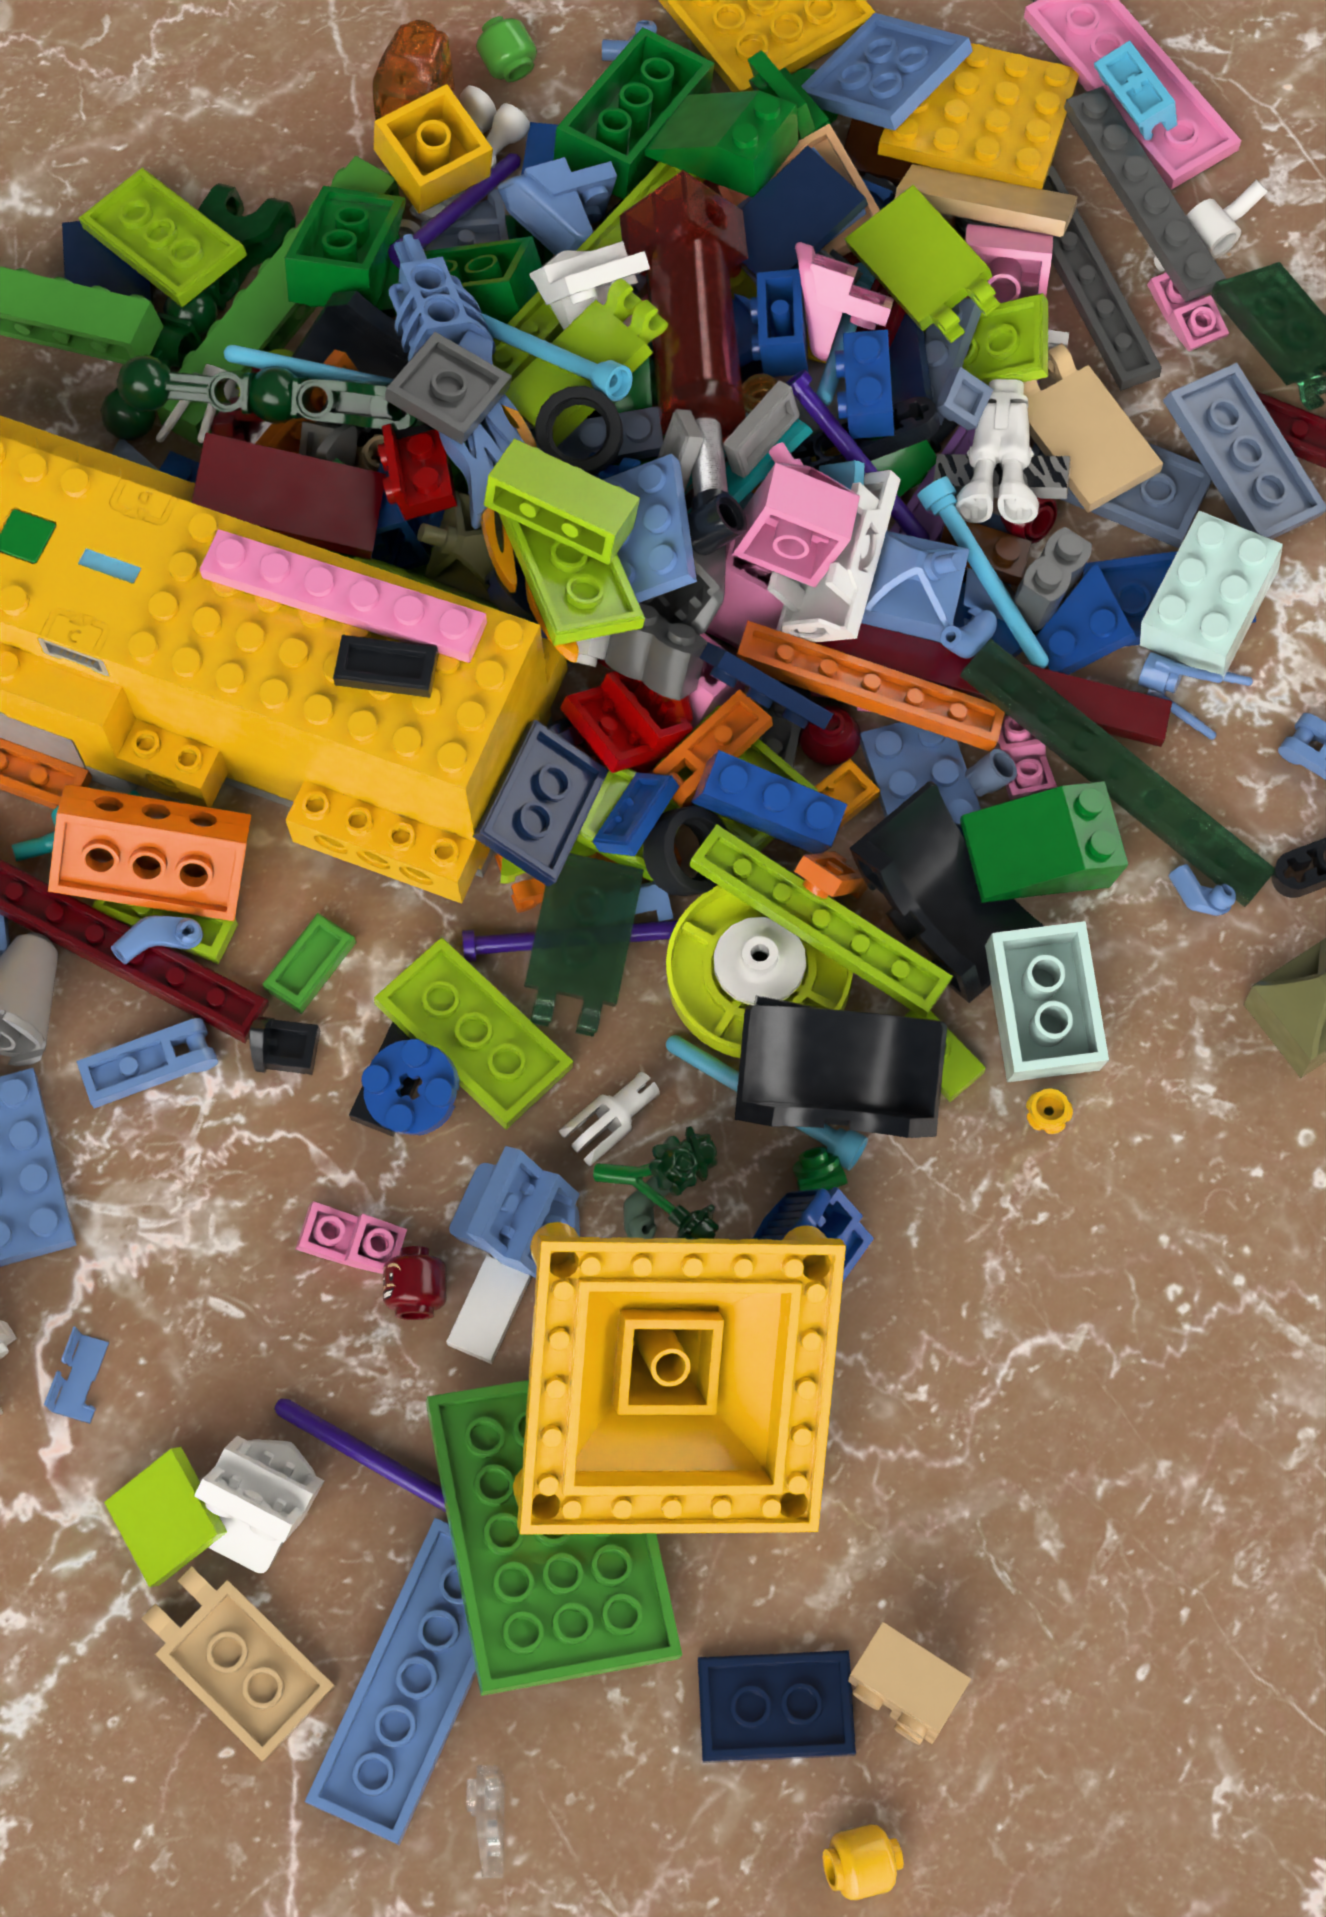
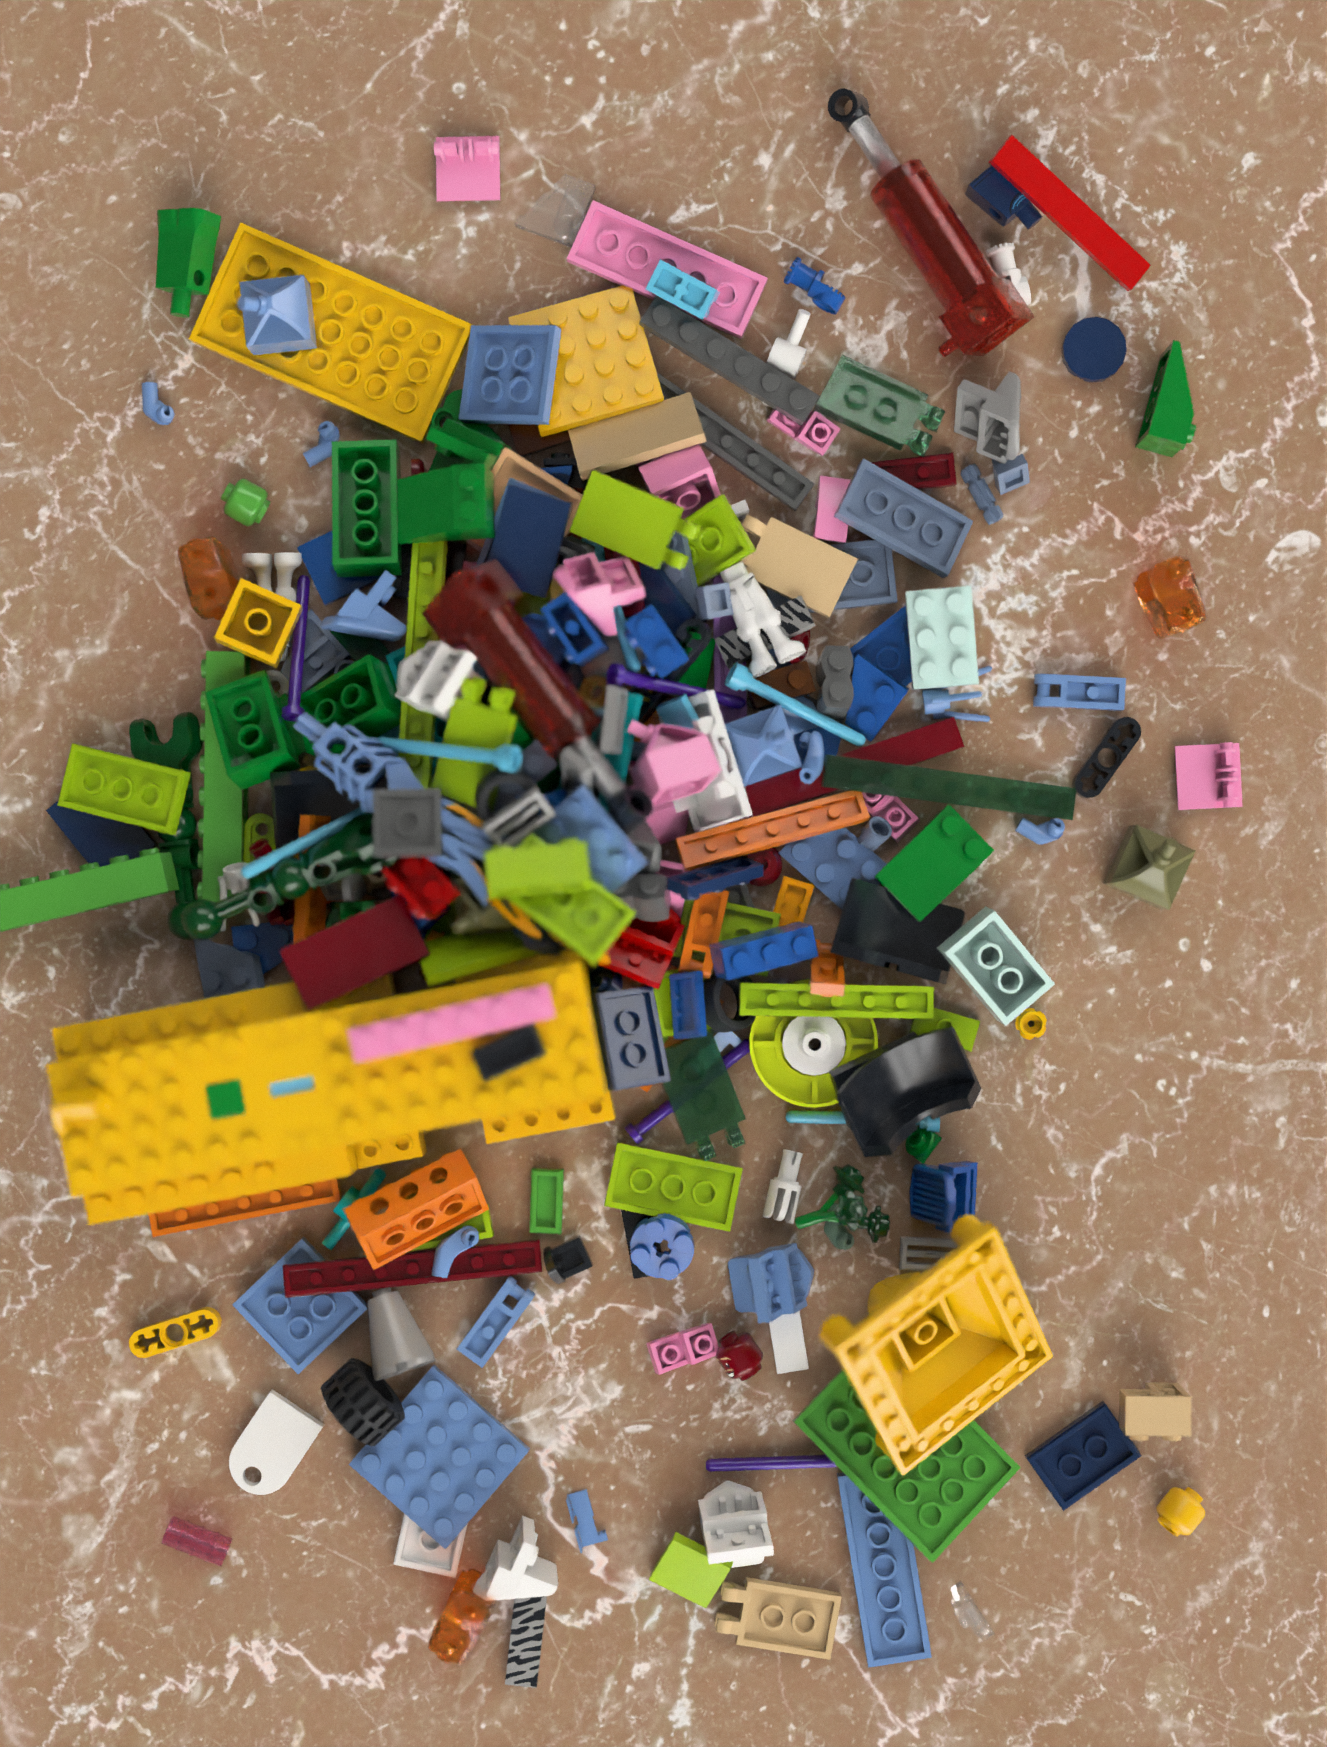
camera: 35 degrees left, 20 degrees up
(616, 448) = (510, 810): none -> light grey tile
(1150, 412) = (828, 498): none -> bright pink slope
(1292, 178) = (810, 281): none -> blue connector

